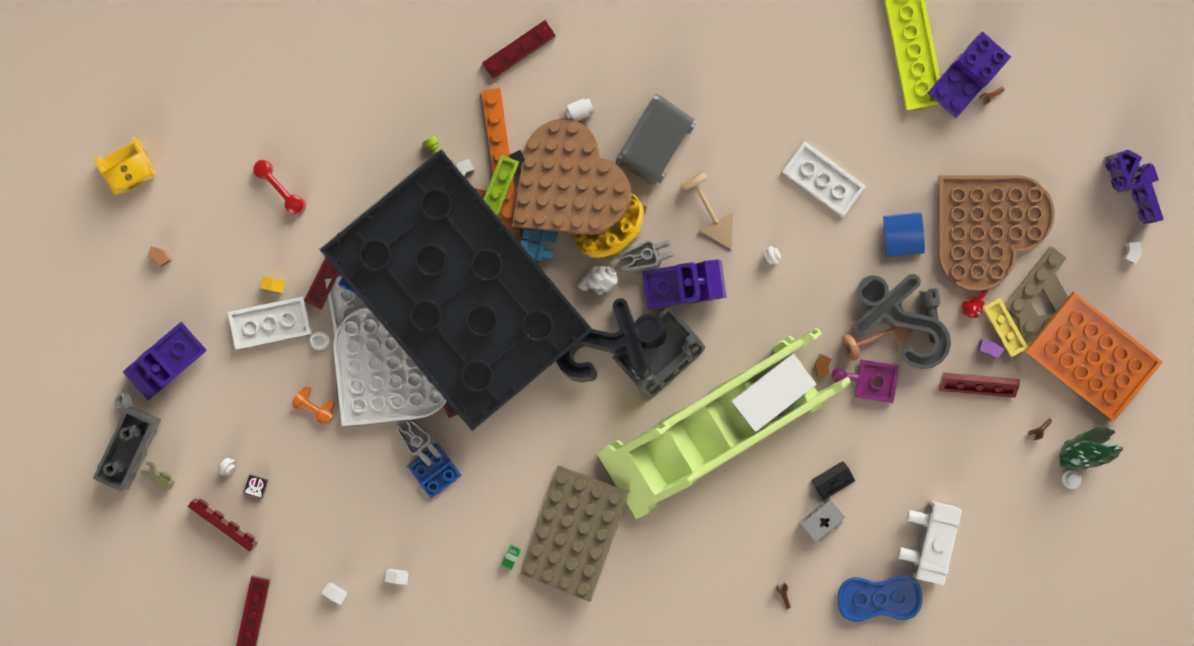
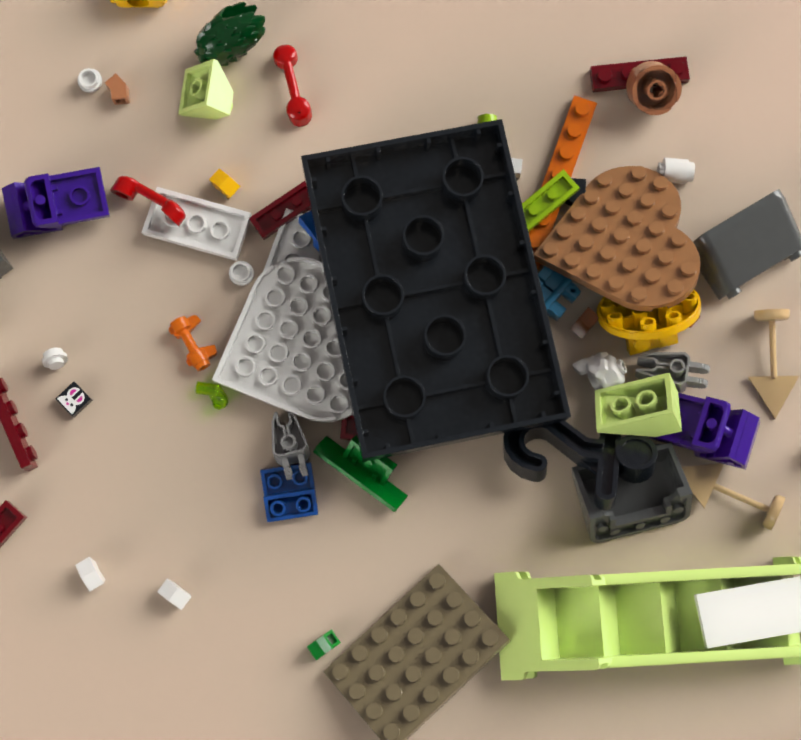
camera: 30 degrees right, 10 degrees down
(134, 259) = (89, 80): none -> white plate
(209, 322) = (128, 188): none -> red piece
(215, 176) = (230, 34): none -> dark green head
(222, 226) = (206, 92): none -> yellowish green slope
(348, 431) = (215, 392): none -> clear neon green arm
(483, 434) = (368, 475): none -> green bracket
(526, 52) = (663, 96): none -> nougat brick
(571, 252) = (585, 323): none -> dark orange piece
(635, 295) = (639, 407): none -> yellowish green slope
(703, 318) = (703, 480): none -> tan piece

